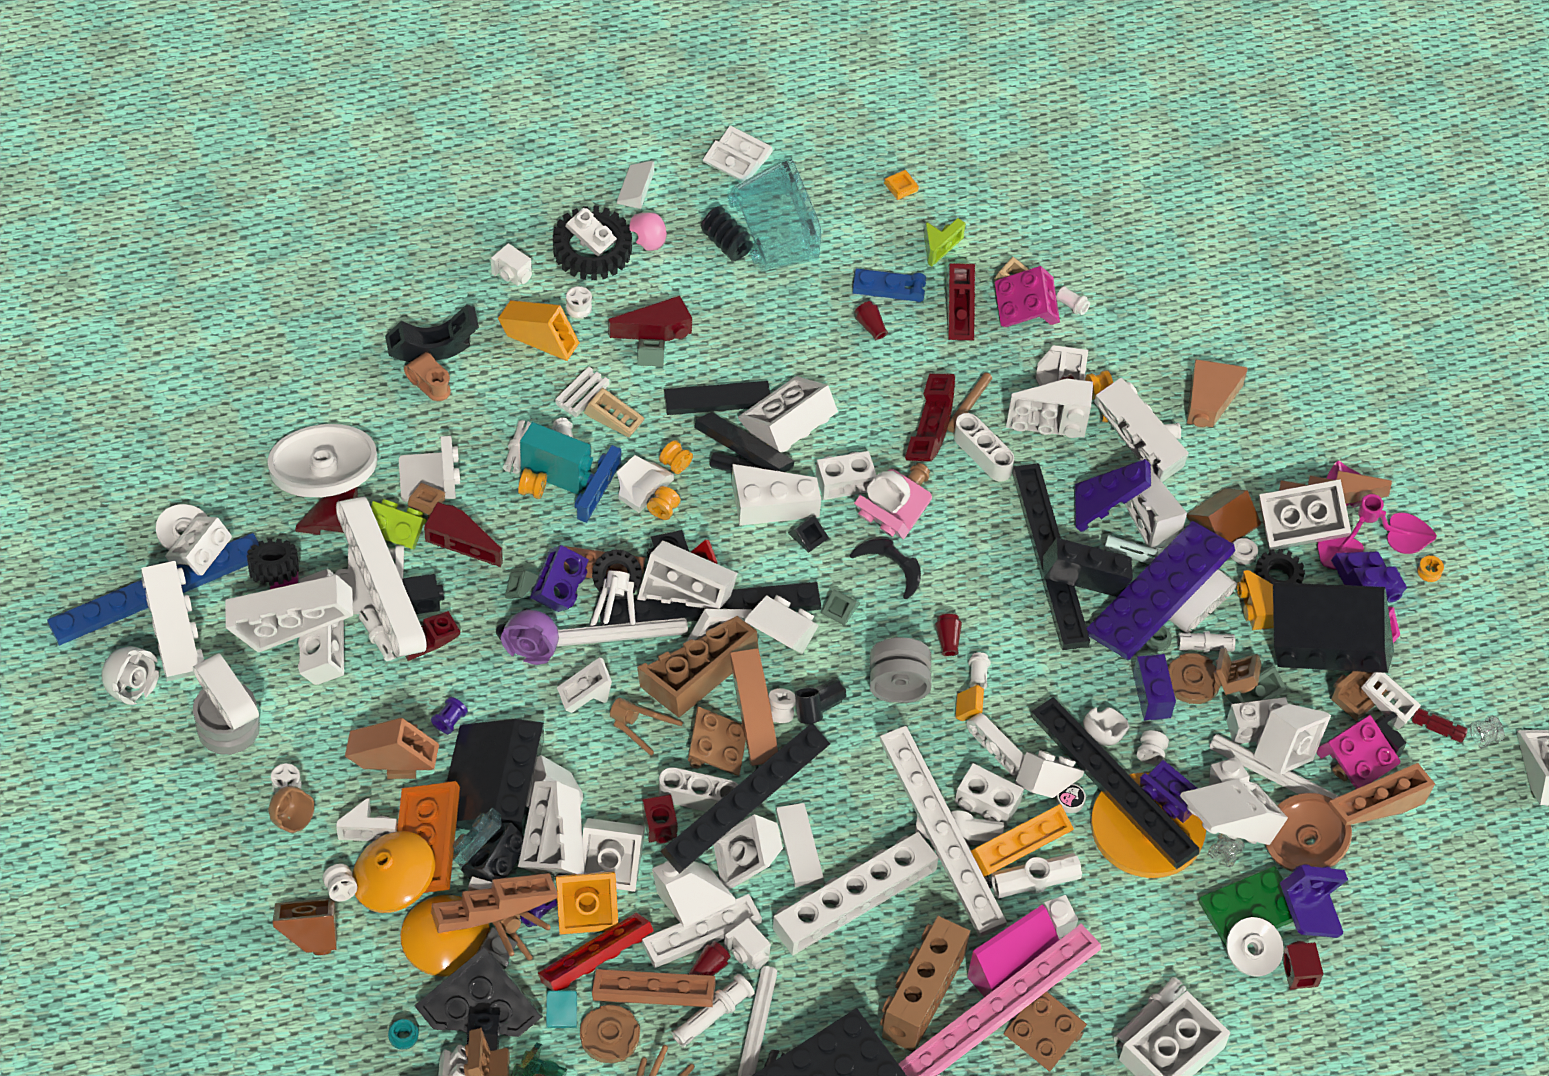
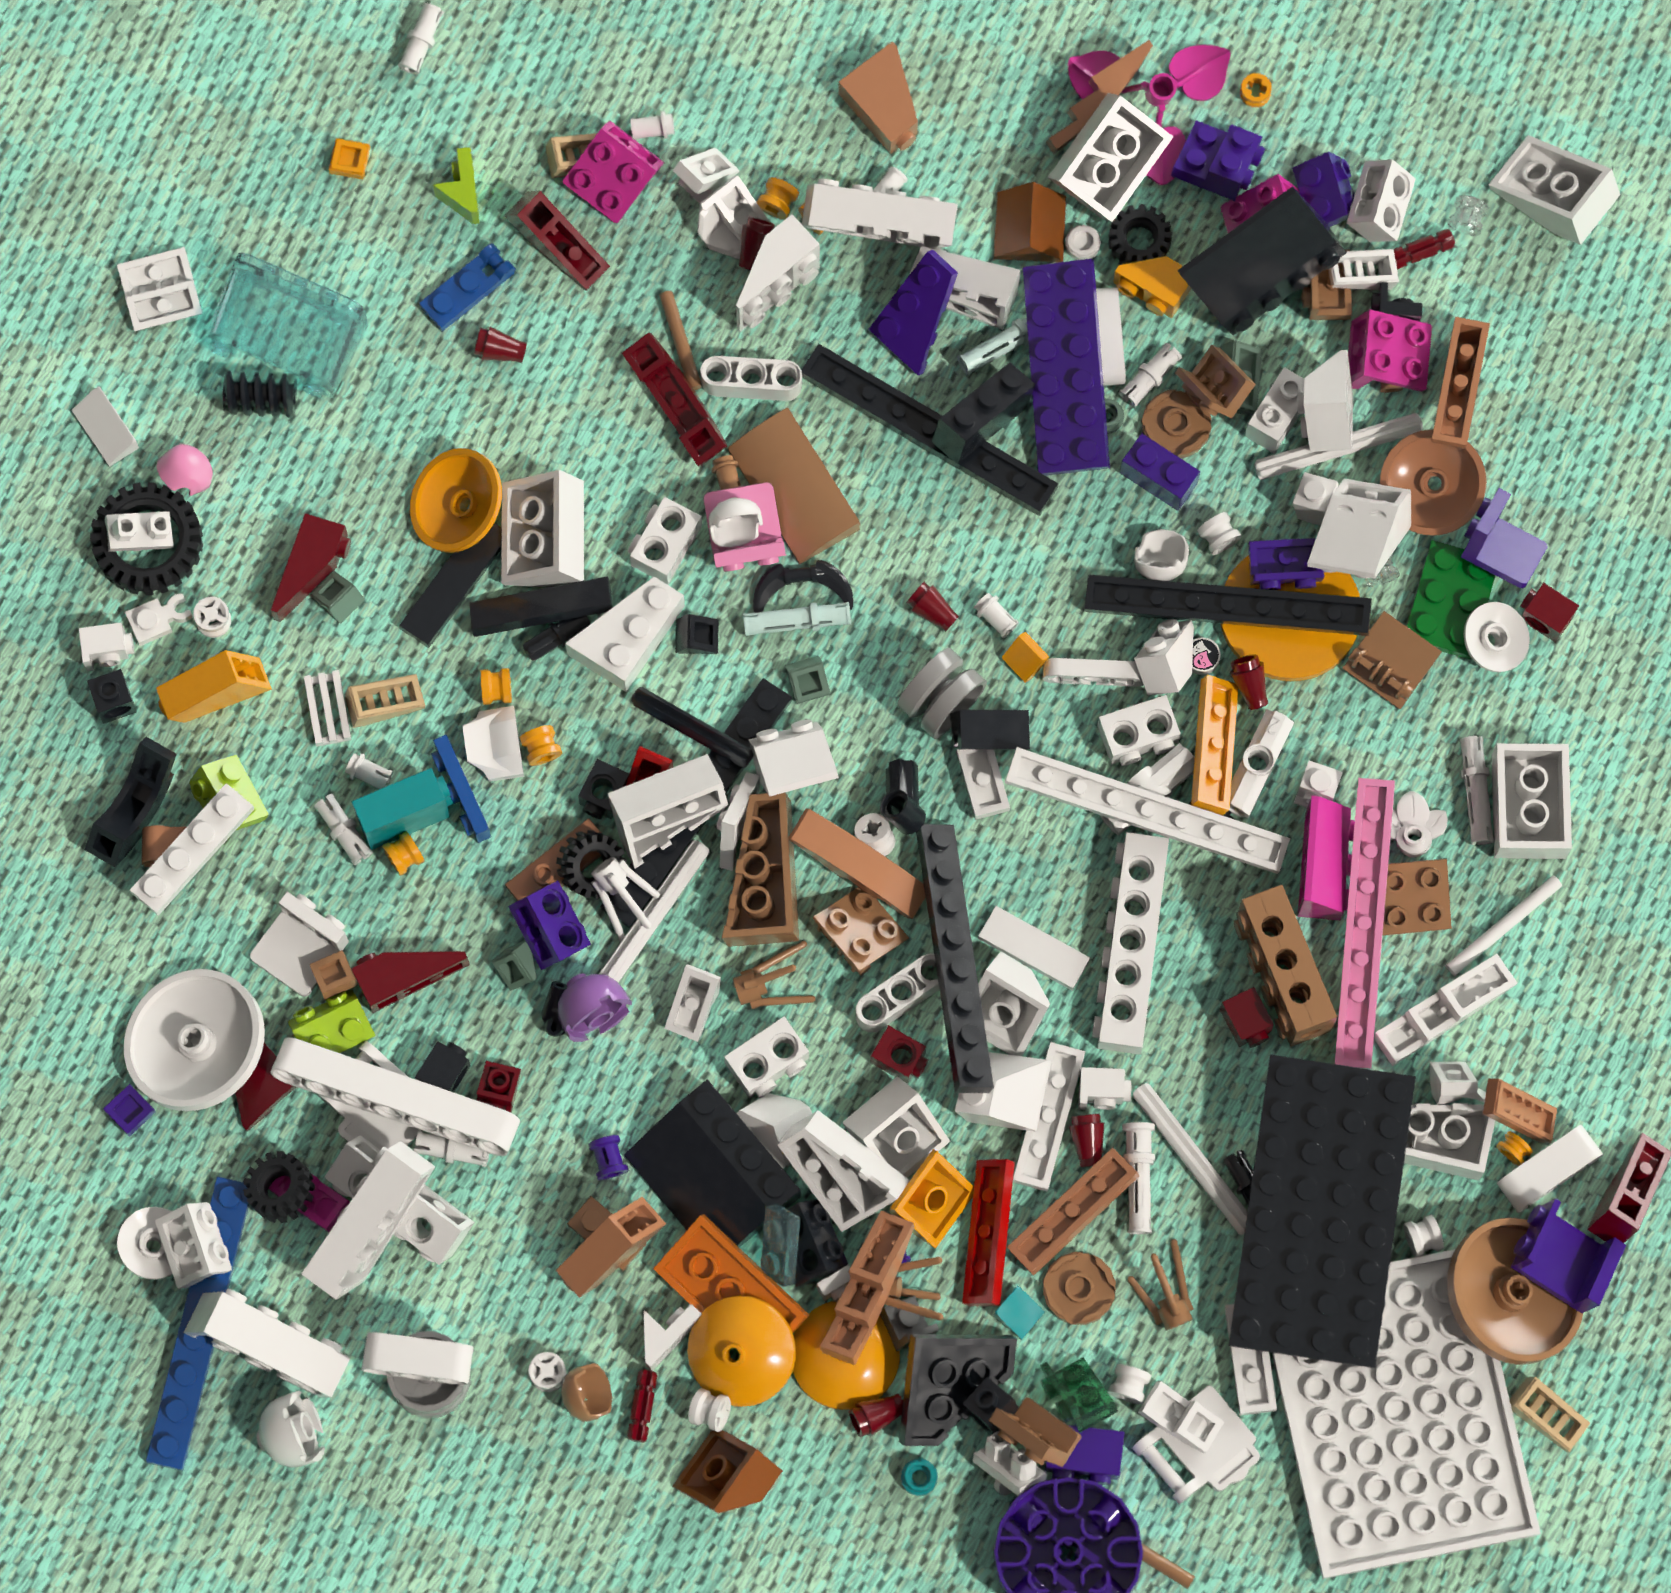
camera: 45 degrees left, 20 degrees up
(253, 464) = (129, 1110): none -> dark purple plate
(311, 848) = (642, 1406): none -> dark red axle
(419, 976) = (875, 1414): none -> dark red cone
(432, 378) = (192, 849): none -> white plate
(483, 381) = (229, 770): none -> bracket
(486, 287) = (112, 696): none -> black brick
(552, 279) = (152, 621): none -> white plate
(592, 745) = (761, 1051): none -> white brick
(750, 565) = (692, 727): none -> black axle
(761, 359) = (444, 494): none -> light orange dish
(867, 745) = (983, 782): none -> white plate
(873, 992) = (1247, 1018): none -> dark red brick
(878, 579) = (797, 618): none -> light aqua pin
(907, 712) = (990, 729): none -> black hinge
(946, 520) = (806, 496): none -> medium nougat slope
(1001, 166) = (420, 38): none -> white pin
(1073, 336) = (704, 173): none -> white slope
(1082, 831) = (1250, 679): none -> dark red cone
(1090, 994) = (1415, 819): none -> white plate
(1178, 900) = (1392, 660): none -> medium nougat hinge
(1417, 648) = (1326, 186): none -> dark purple bracket
(1440, 672) = (1381, 200): none -> white brick

